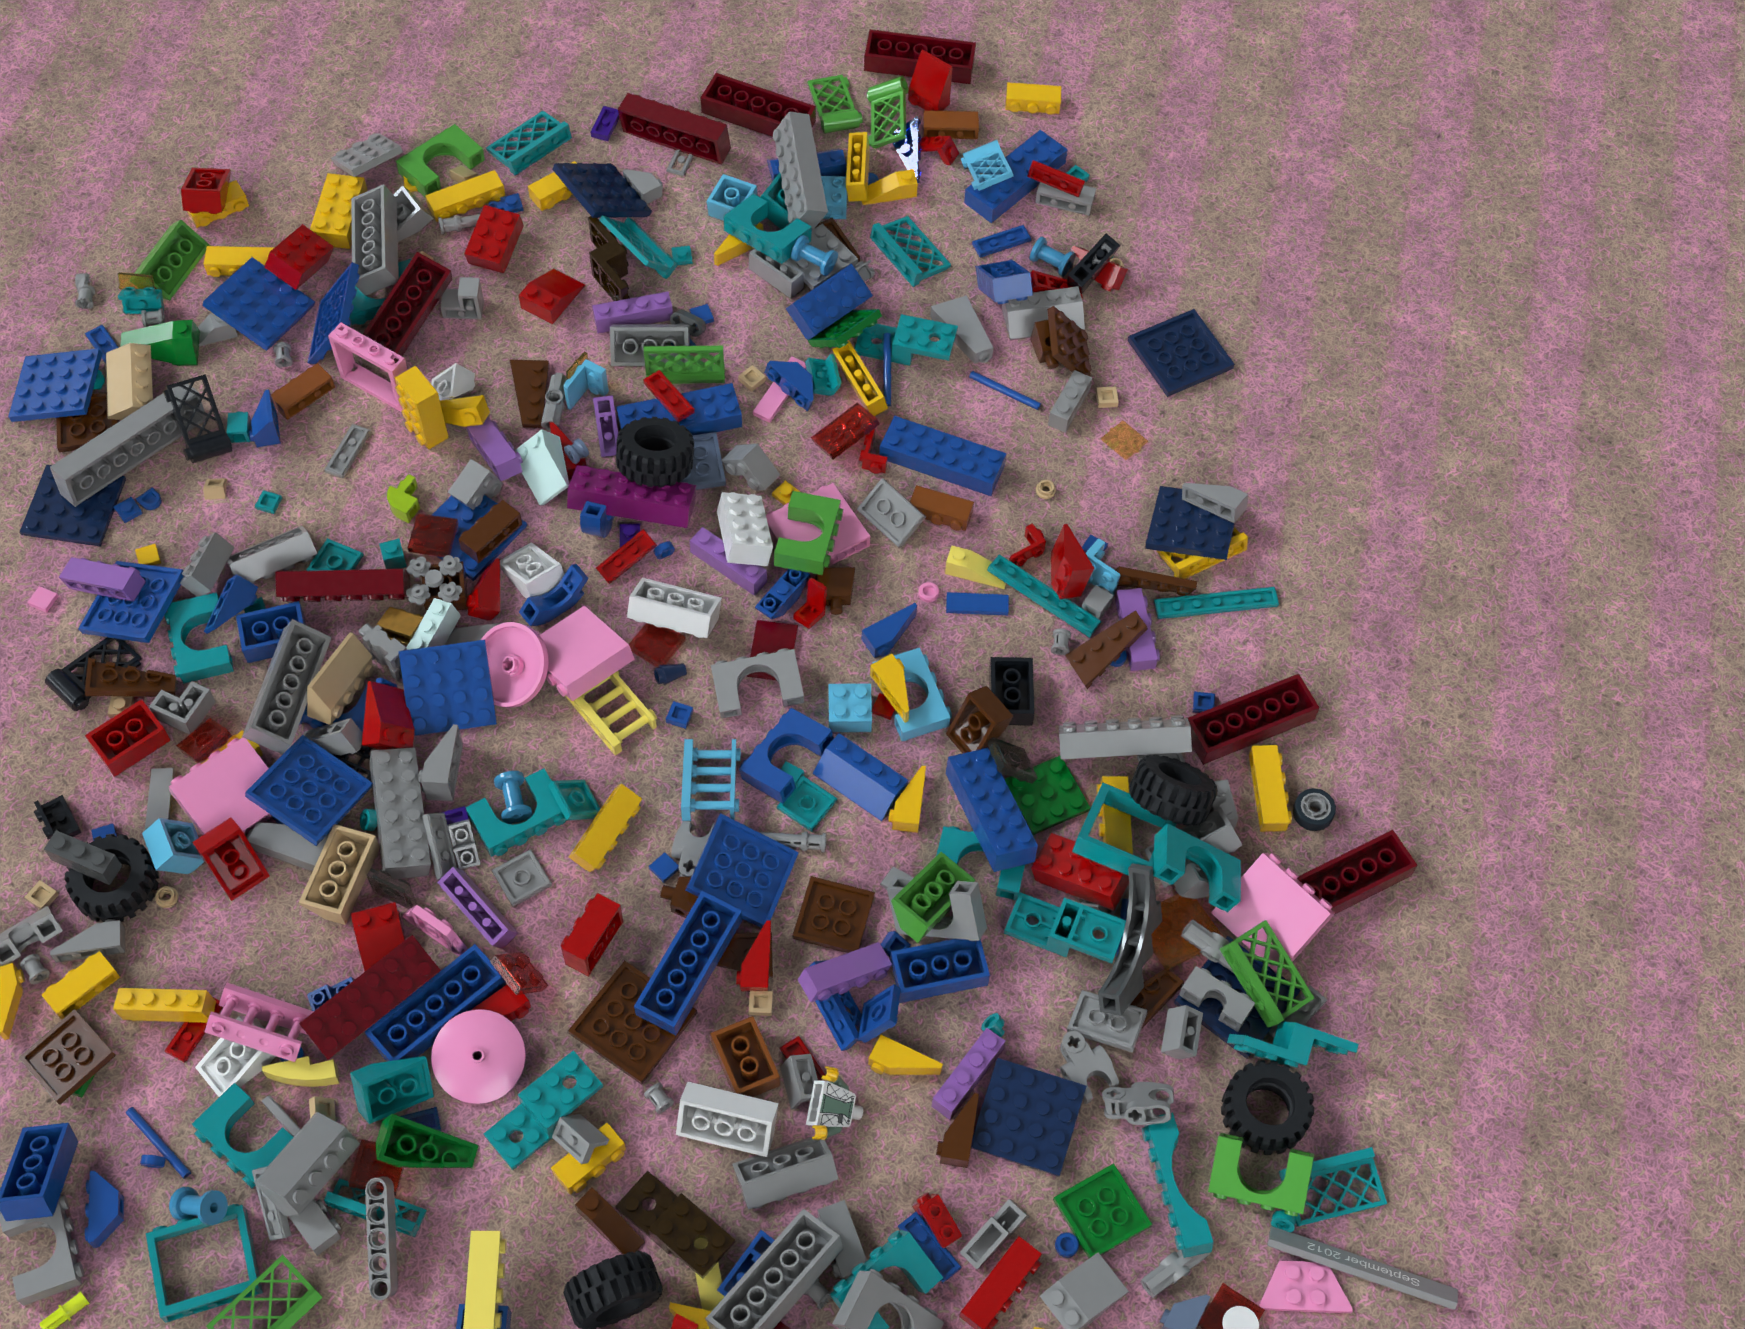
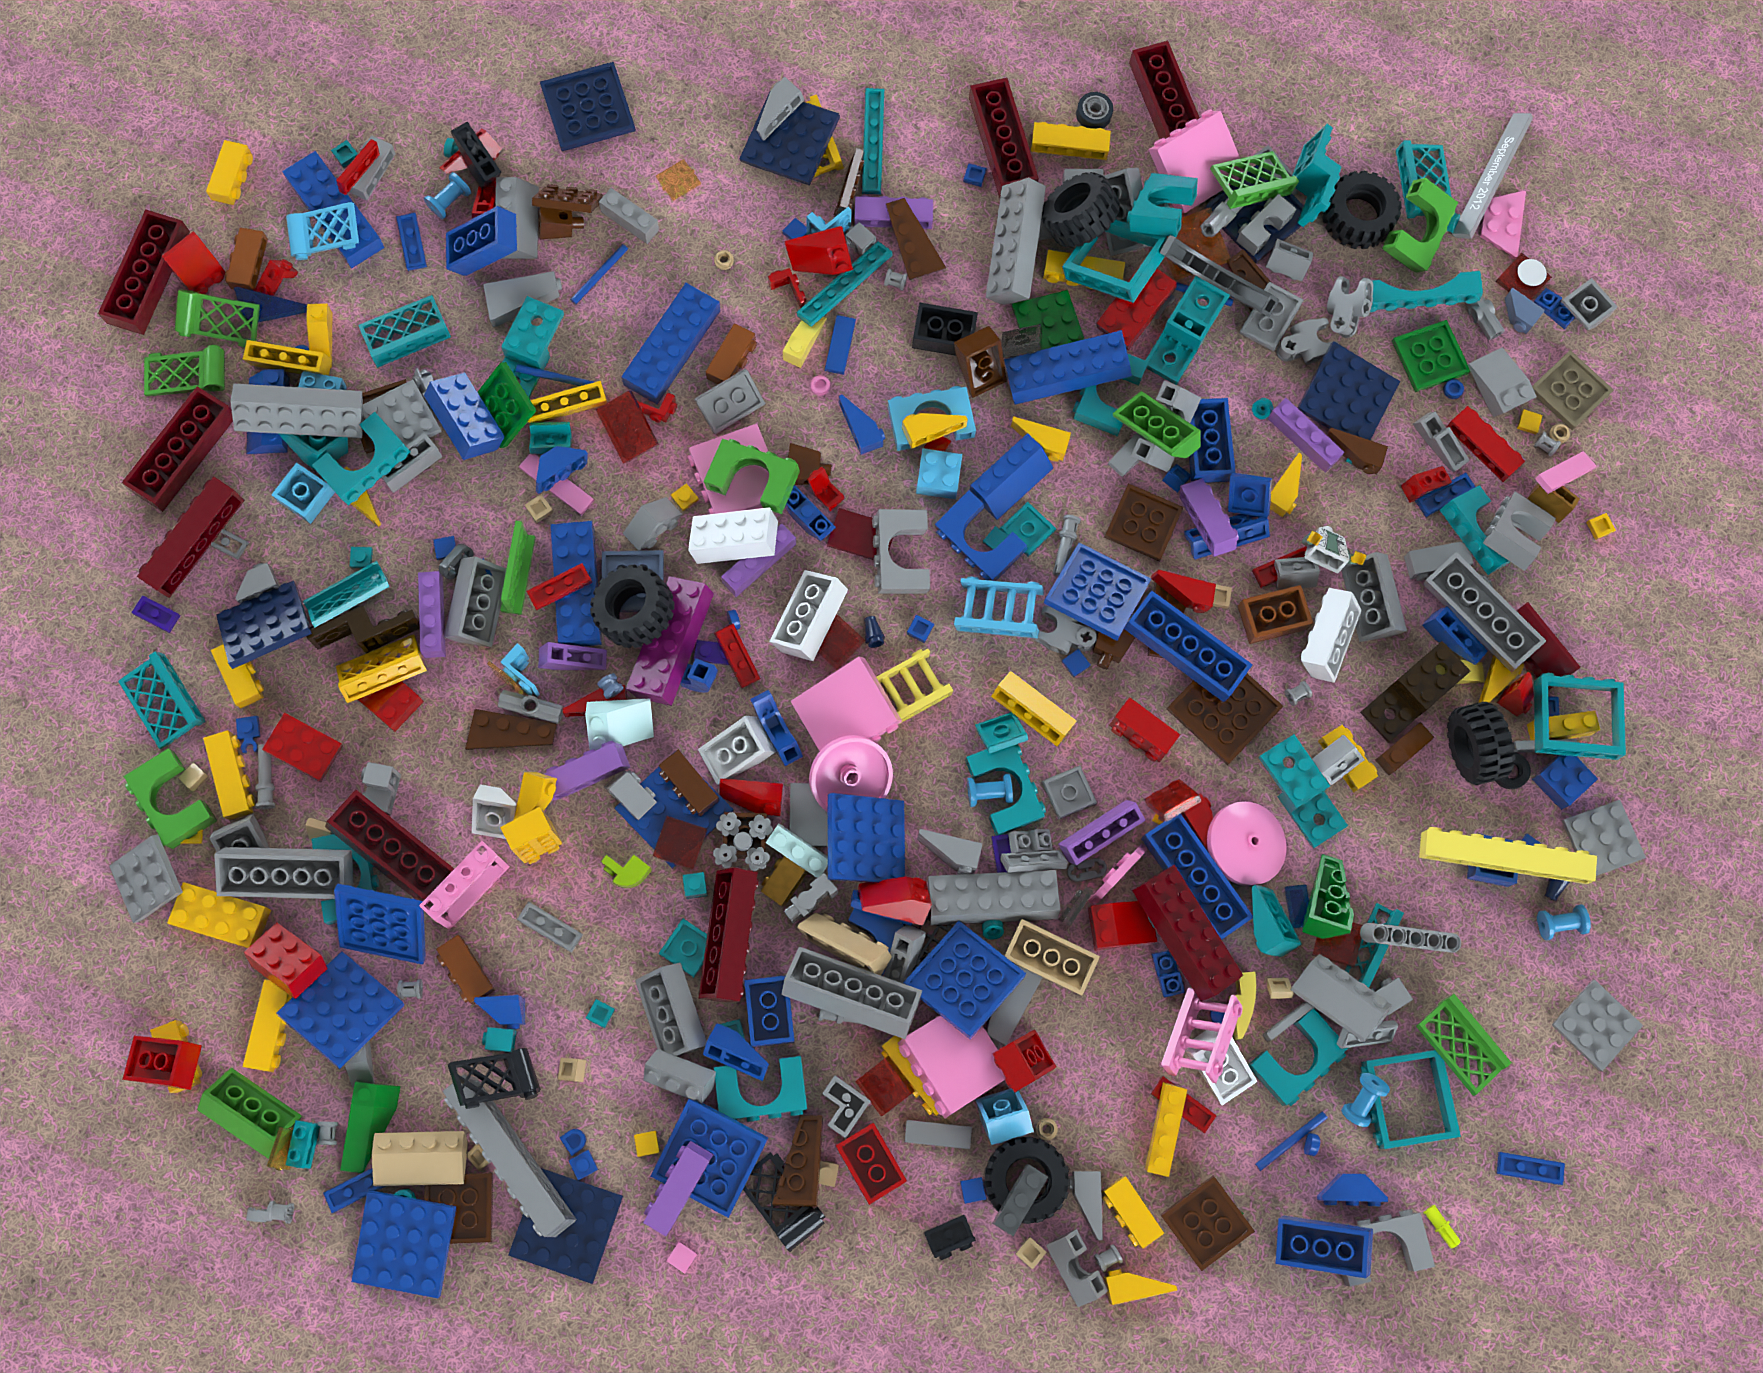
camera: 85 degrees left, 15 degrees up
(444, 902) = (1087, 875): none -> dark grey beam
(571, 283) = (375, 677): none -> yellow fence
(824, 260) = (410, 416): dark azure piece -> none
(1107, 397) = (628, 183): tan plate -> none

